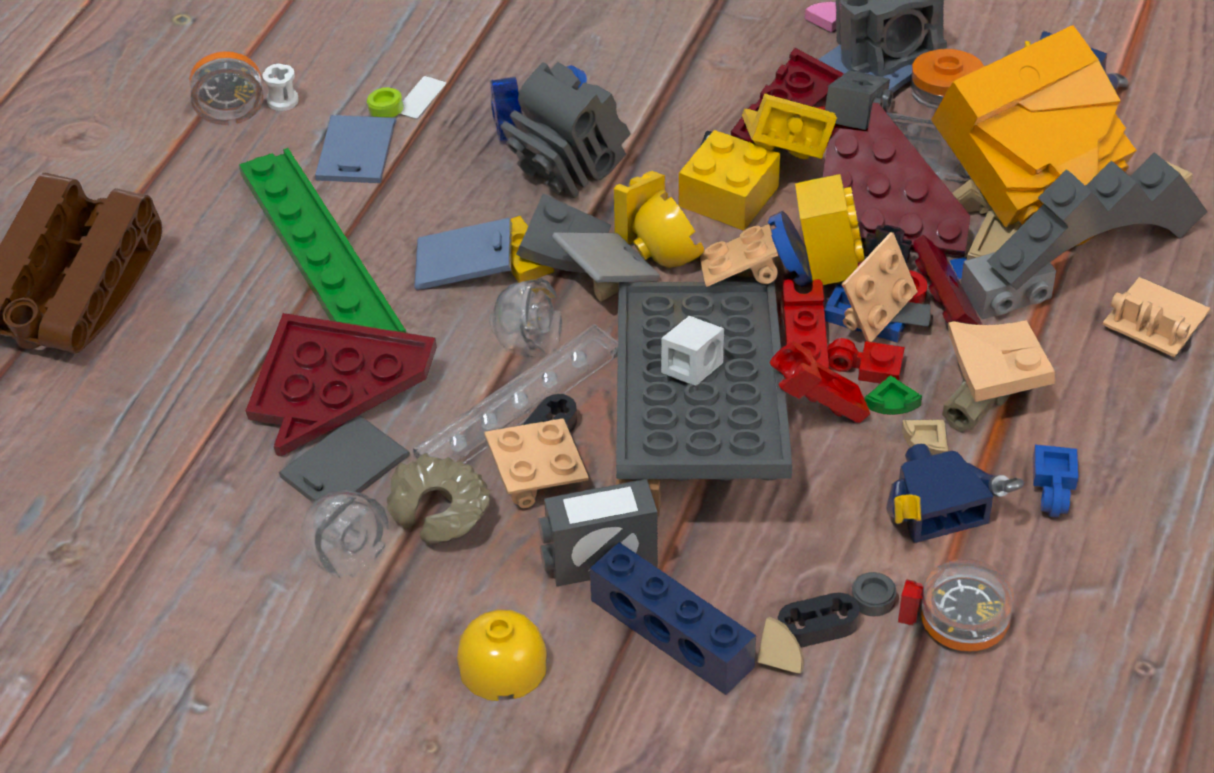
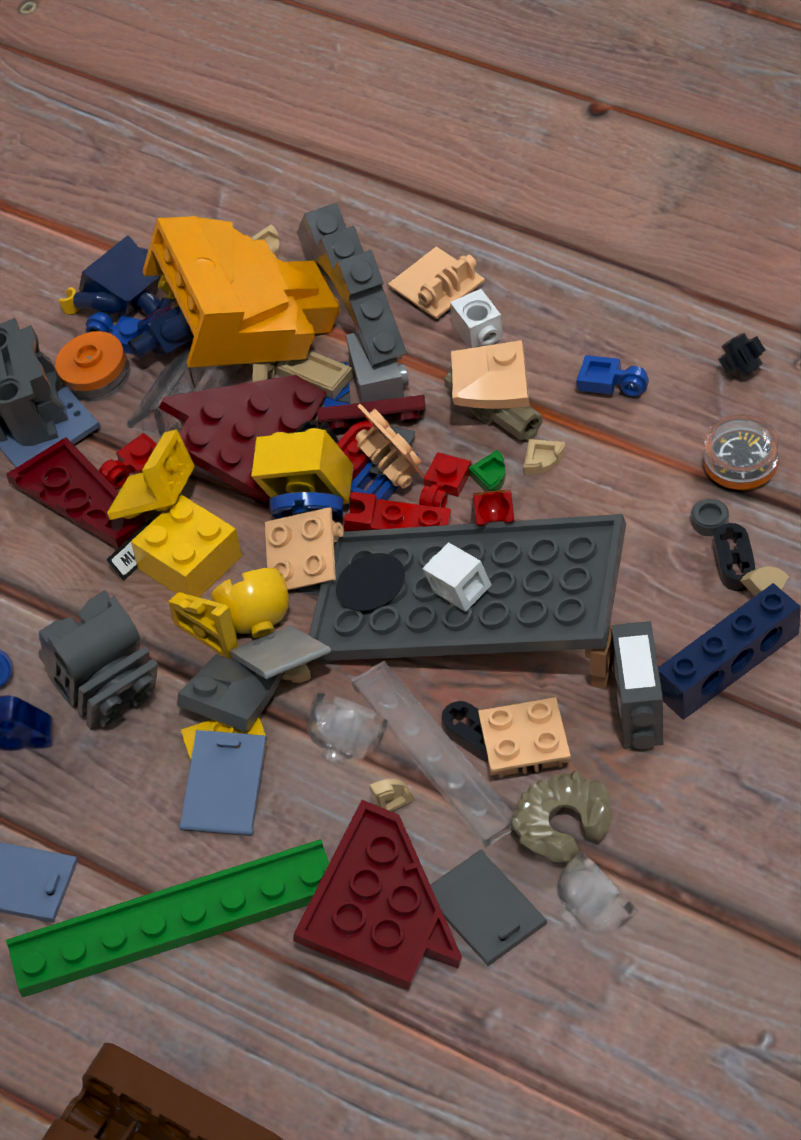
camera: 75 degrees left, 5 degrees up
(459, 370) = (391, 794): none -> tan tile
(501, 655) = (746, 785): yellow cylinder -> none
(706, 305) = (370, 581): none -> black sticker
(853, 97) = (112, 431): dark grey brick -> none
(910, 602) = (725, 490): red tile -> none
(943, 493) = (619, 448): dark blue torso -> none
(1102, 351) = (476, 319): none -> white brick
(1121, 591) = (742, 354): none -> black gear

